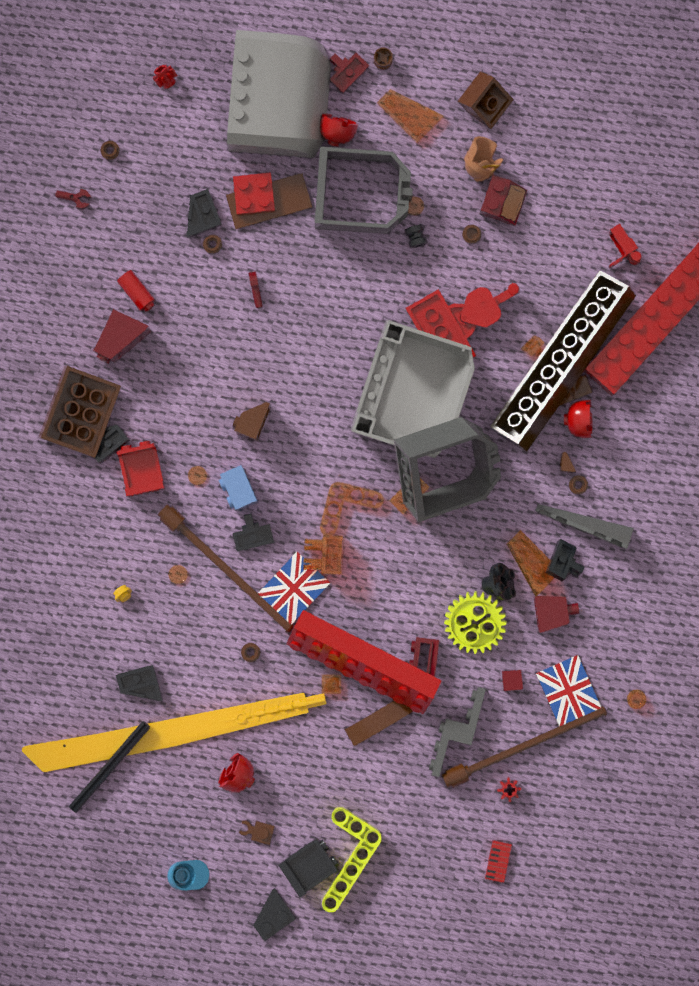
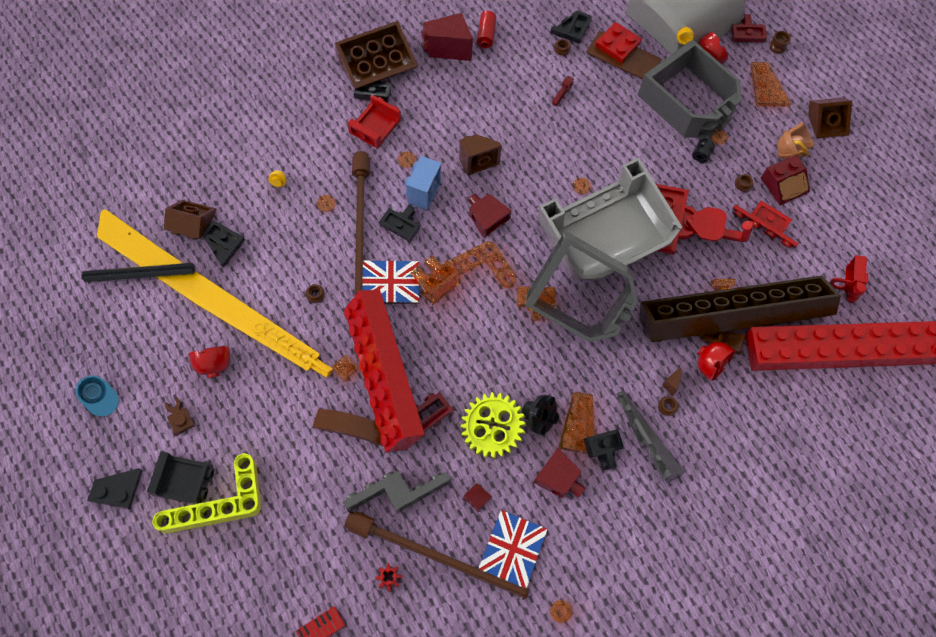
camera: 40 degrees right, 20 degrees down
(96, 690) = (188, 218): none -> reddish brown slope
(307, 462) = (488, 213): none -> dark red torso
(310, 147) = (685, 35): none -> yellow plate
(351, 362) = (581, 185): none -> clear orange piece
(520, 253) = (770, 220): none -> red bracket

